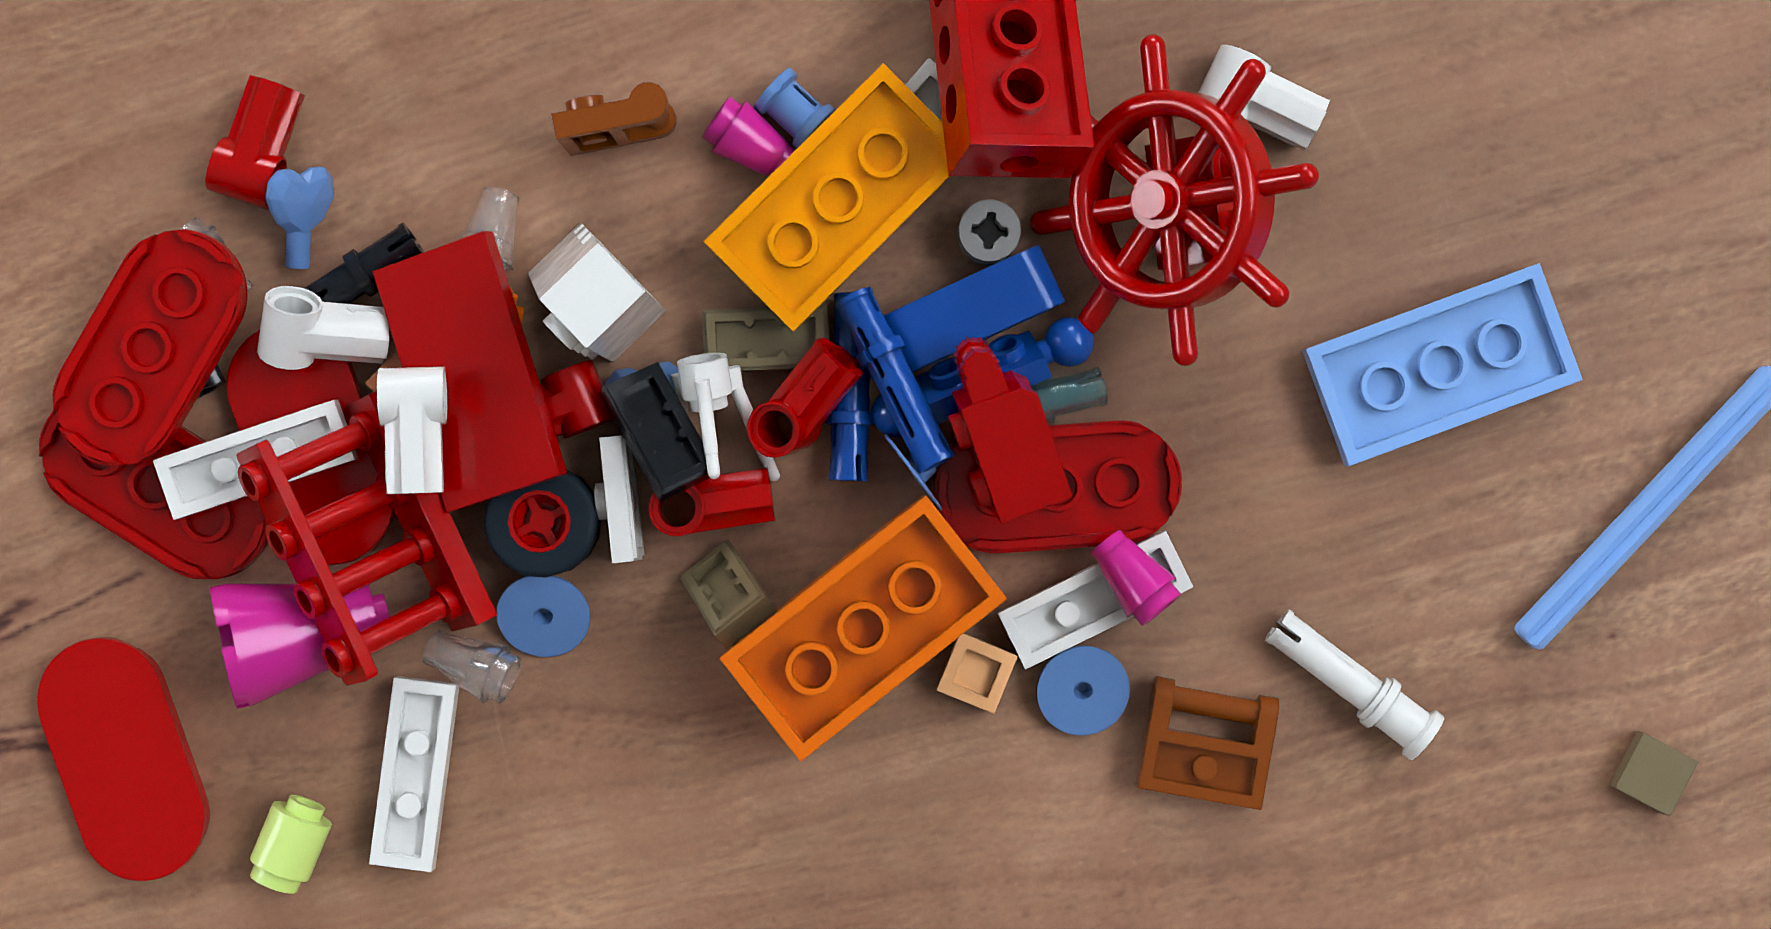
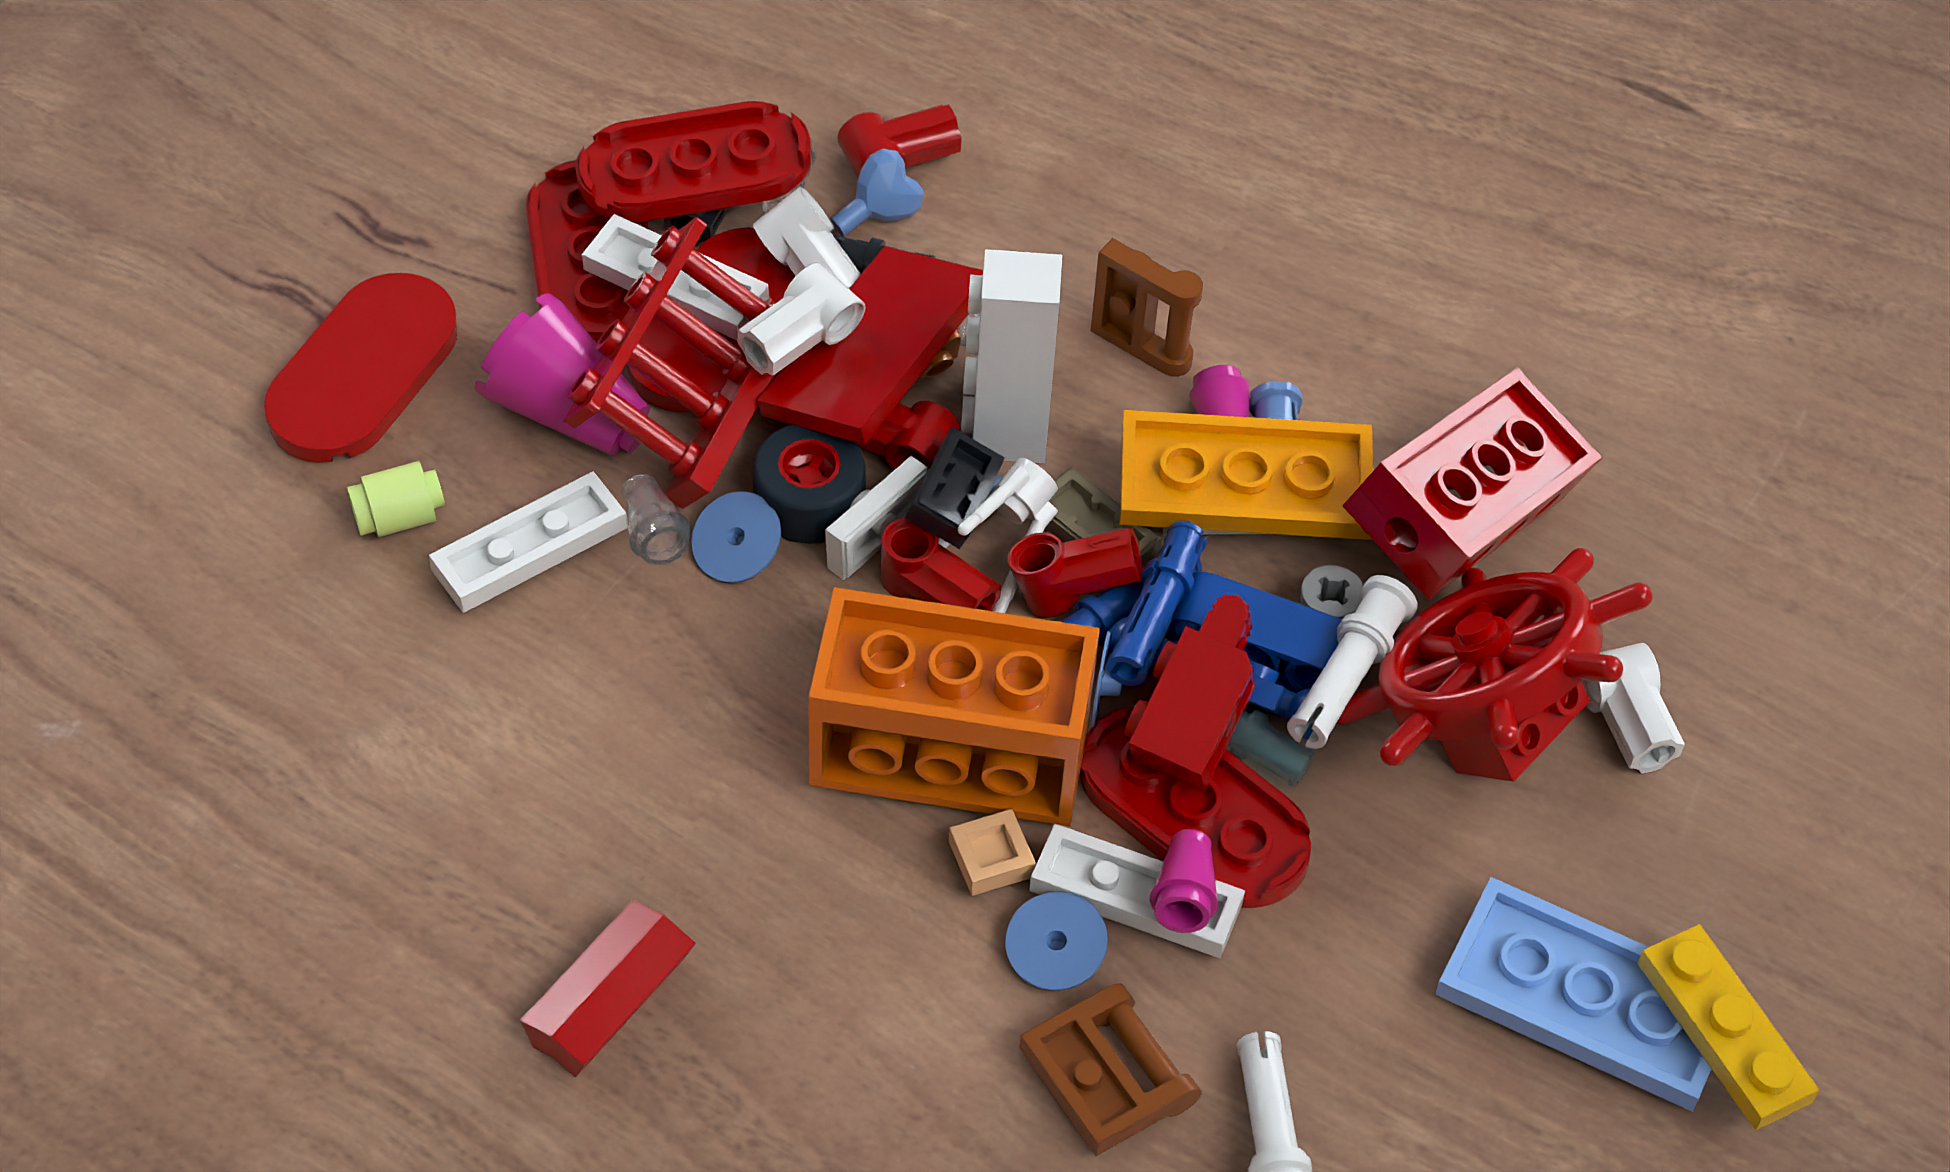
camera: 40 degrees right, 35 degrees down
(1060, 261) = (1363, 641): none -> white pin
(1558, 310) = (1728, 1027): none -> yellow plate

